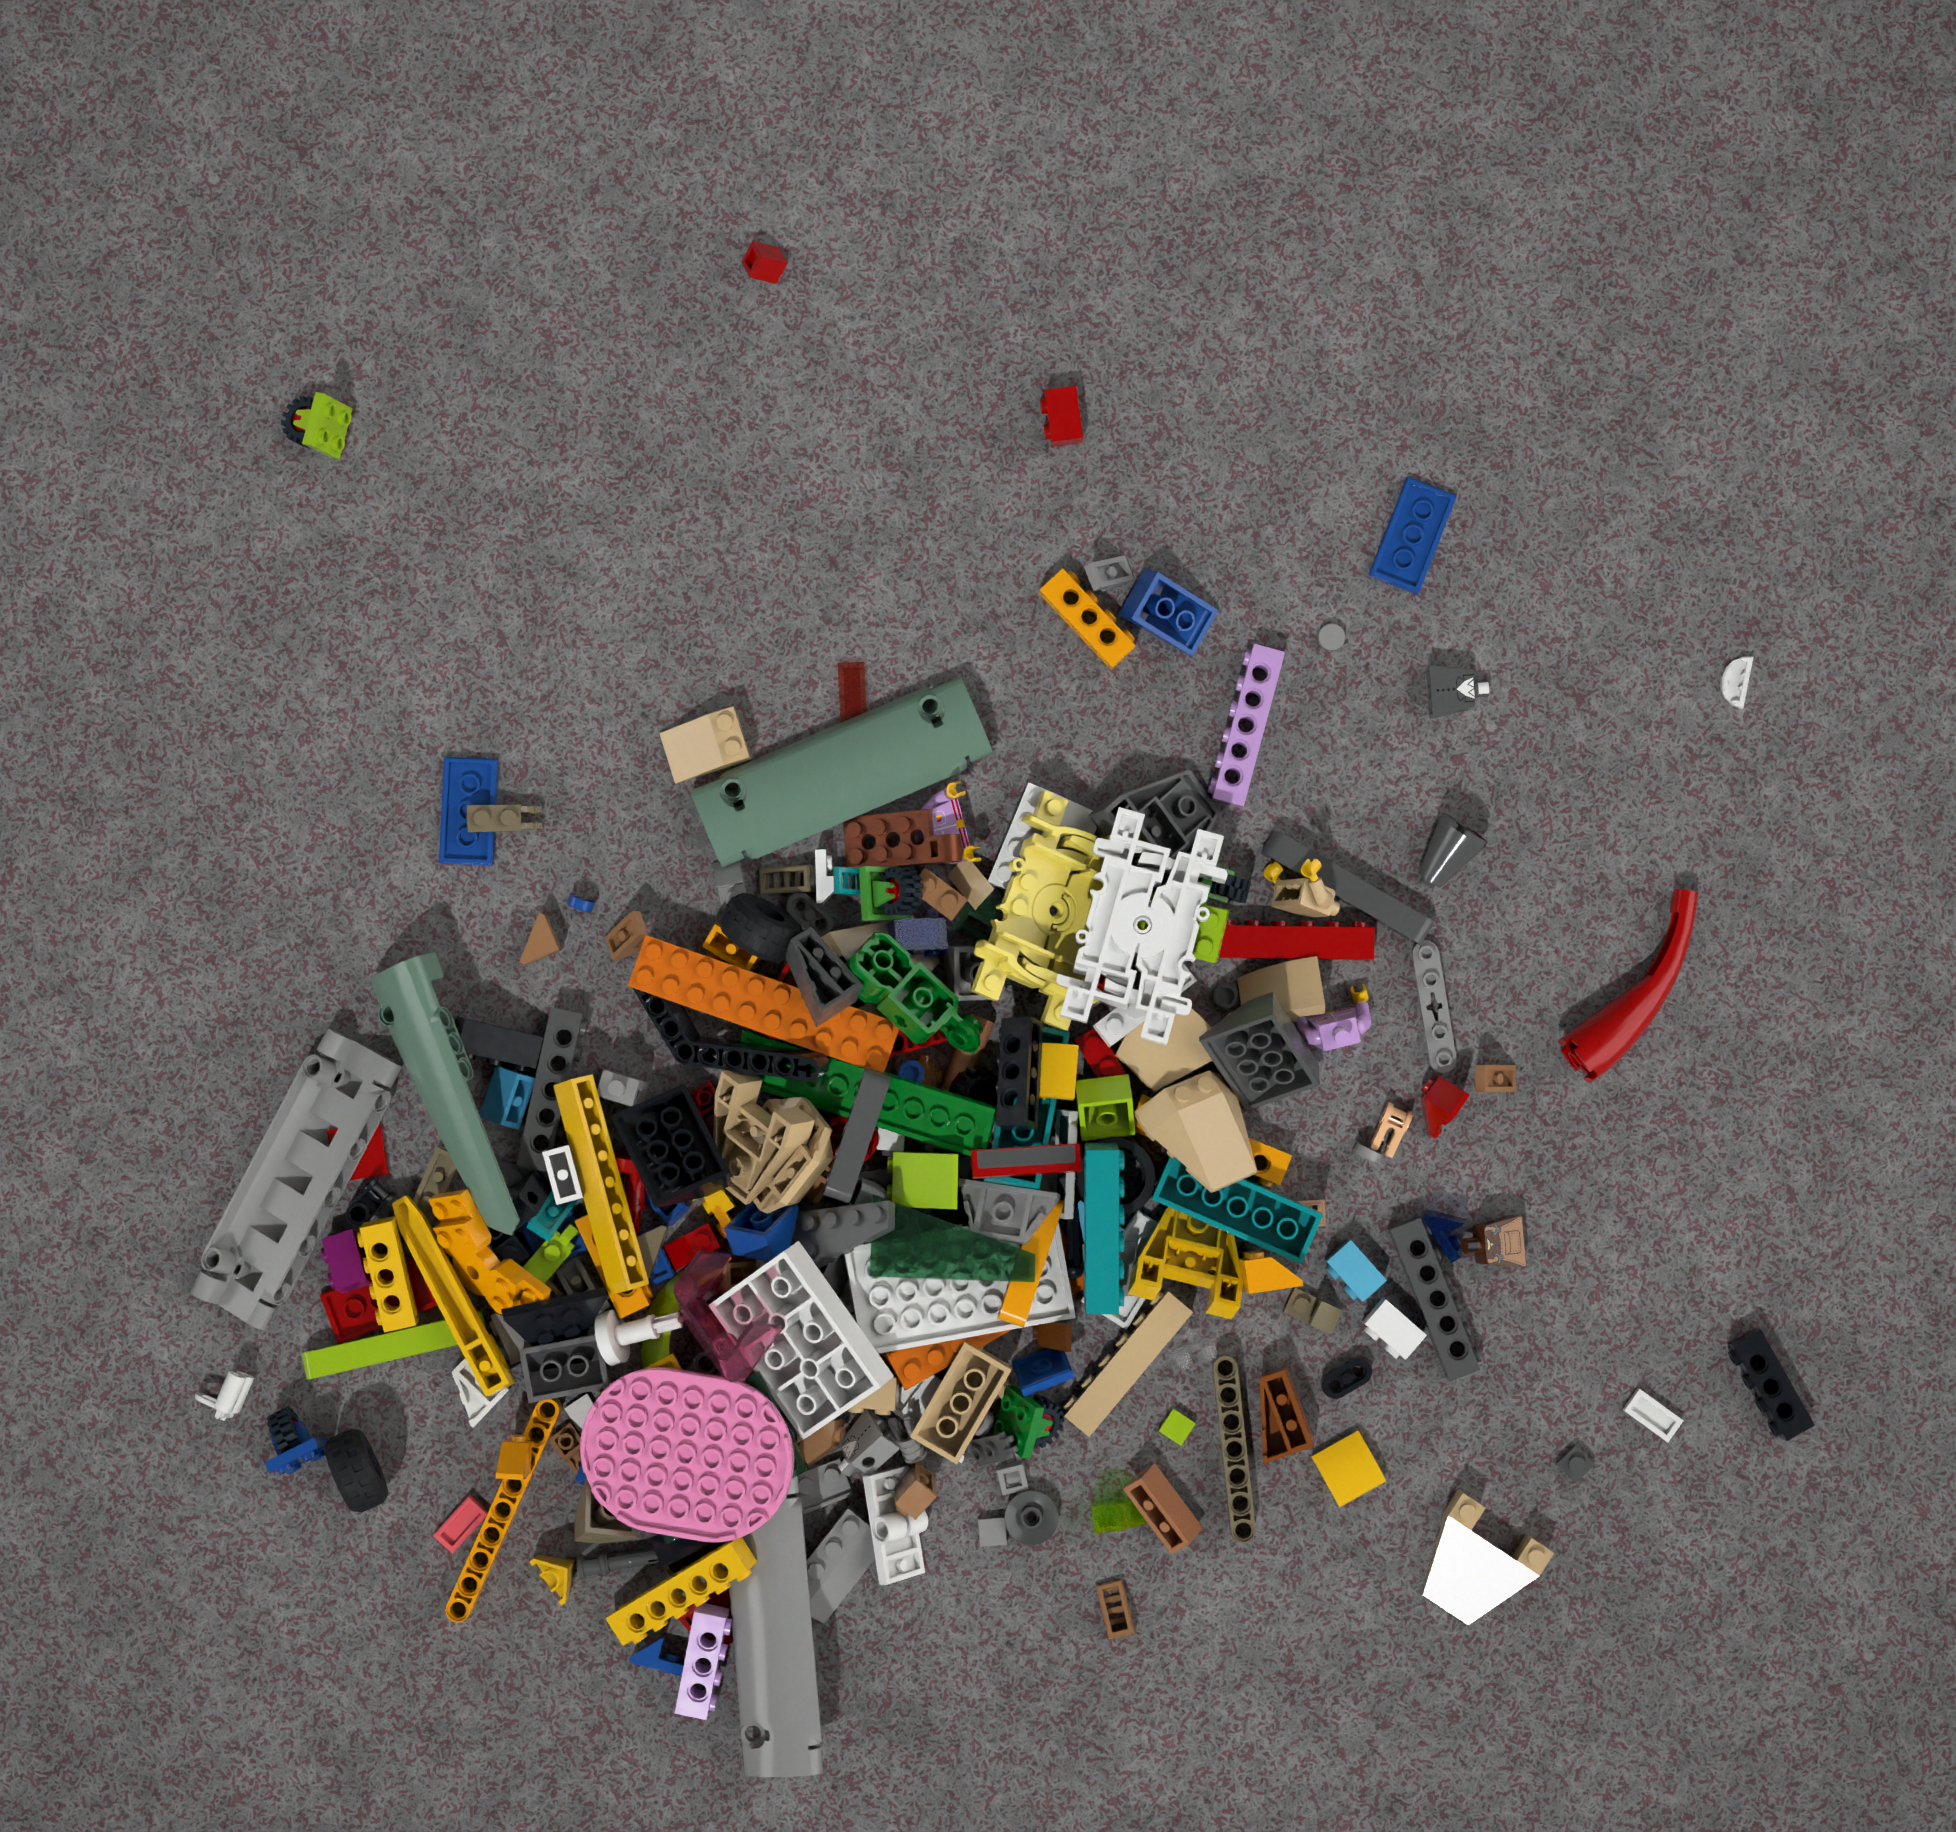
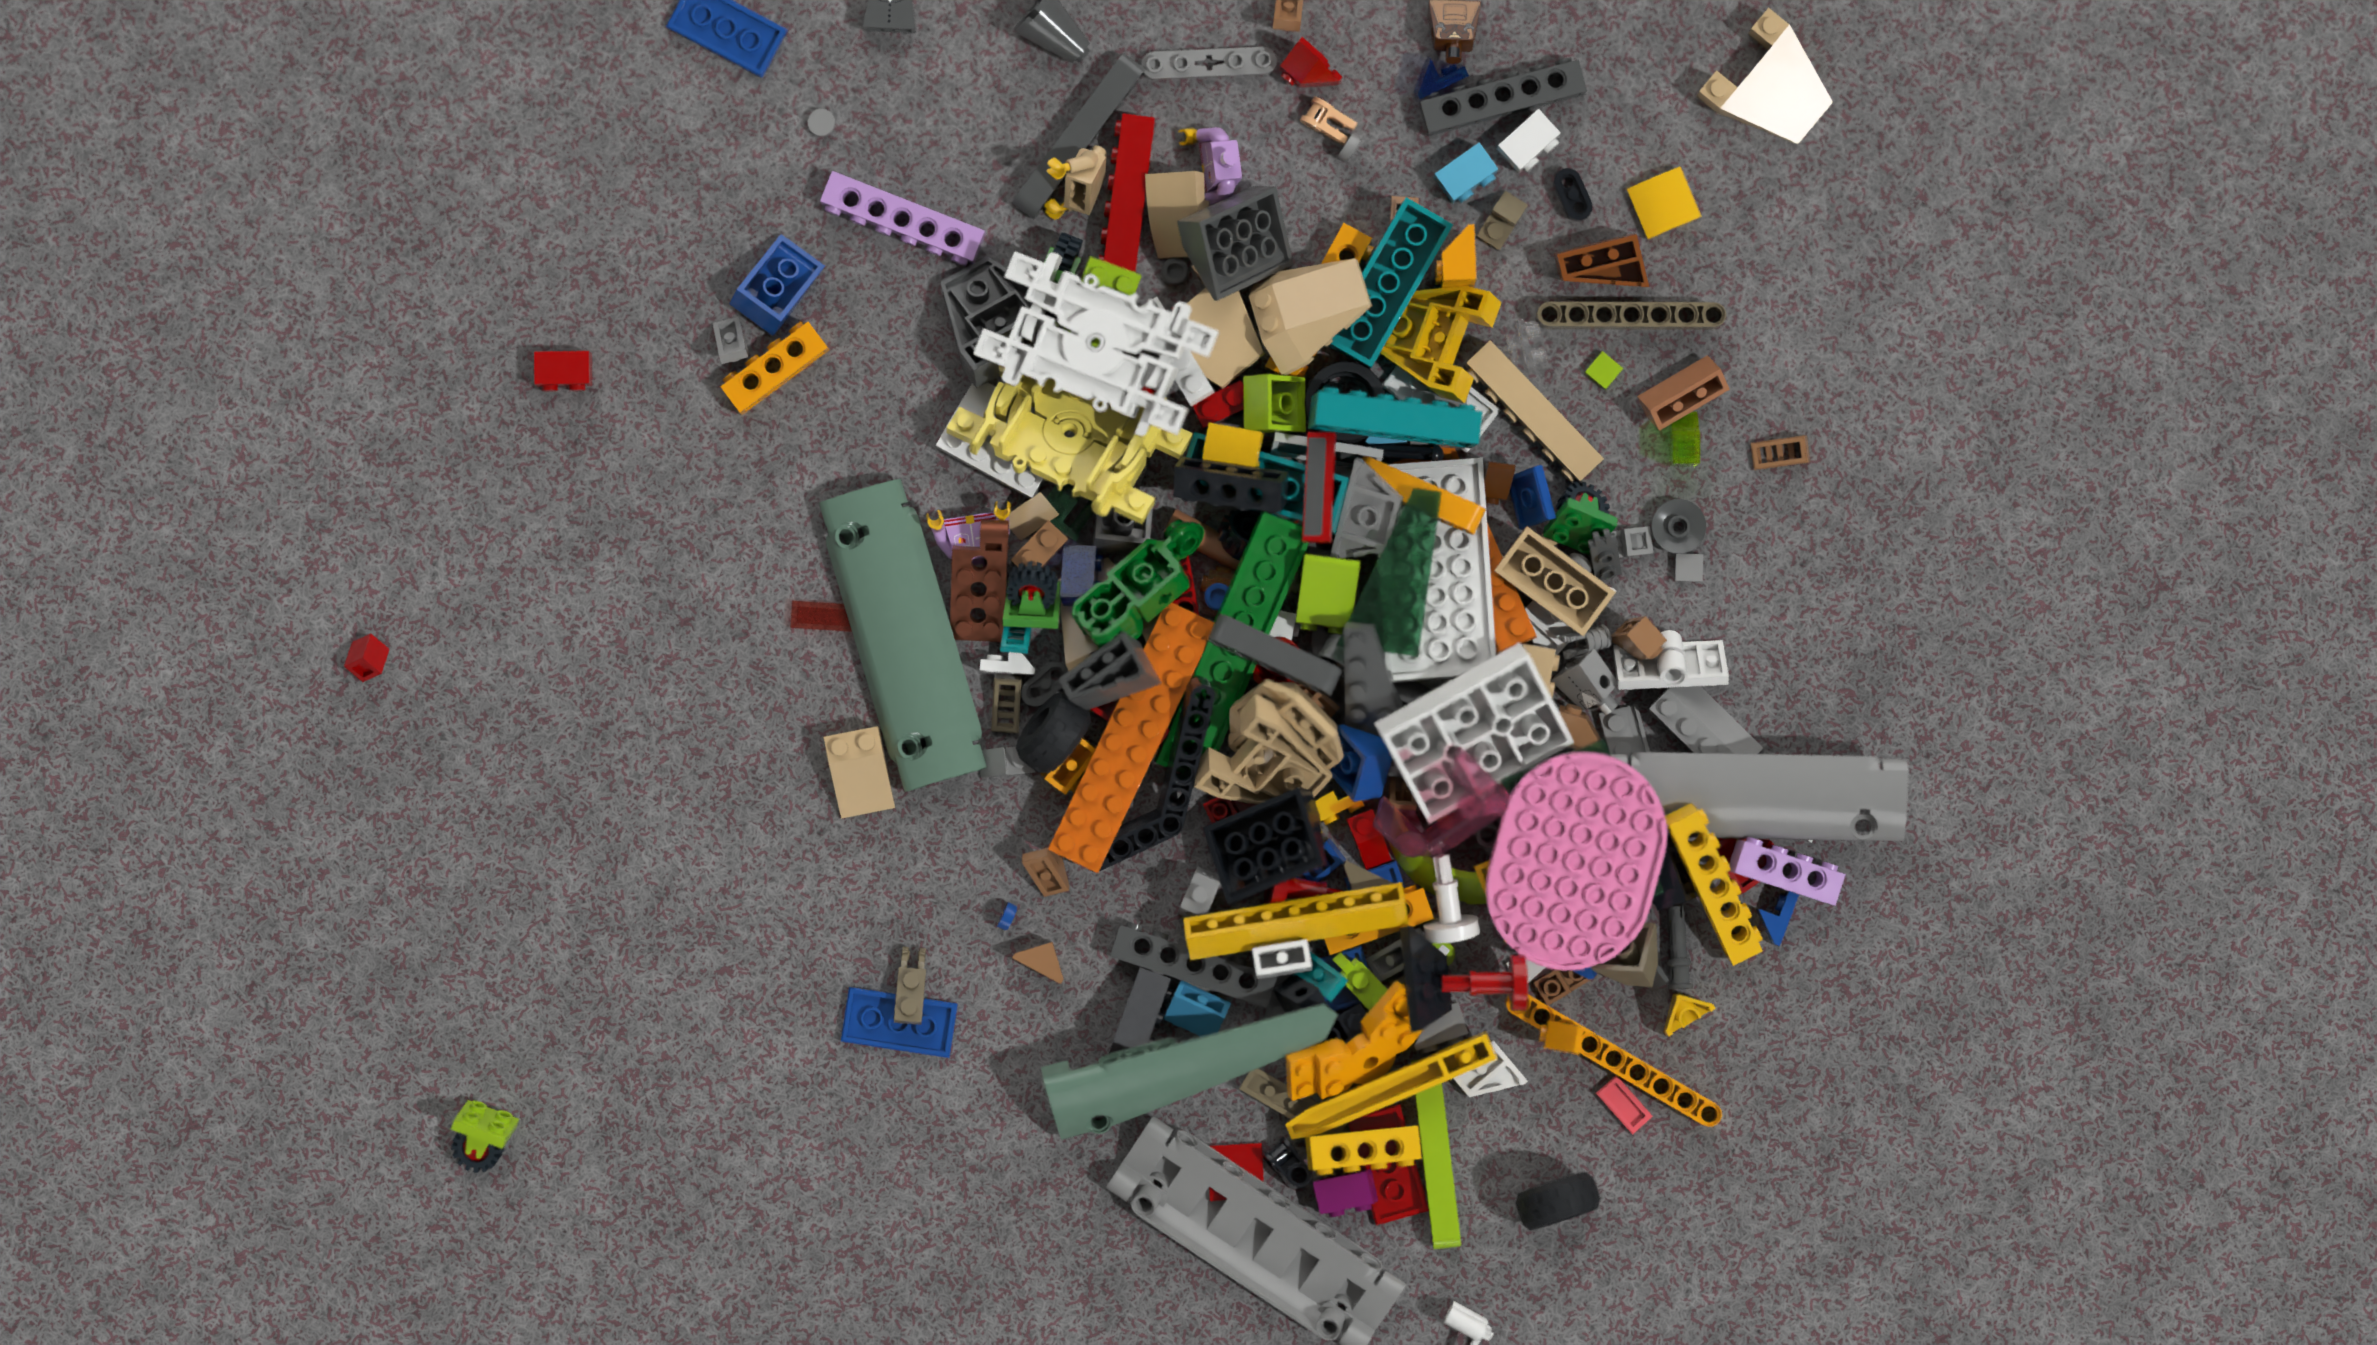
camera: 85 degrees left, 0 degrees up
(291, 1442) = (1523, 1264): plate -> none
(562, 1402) = (1511, 982): none -> red piece
(563, 1368) = (1477, 955): flat silver slope -> none

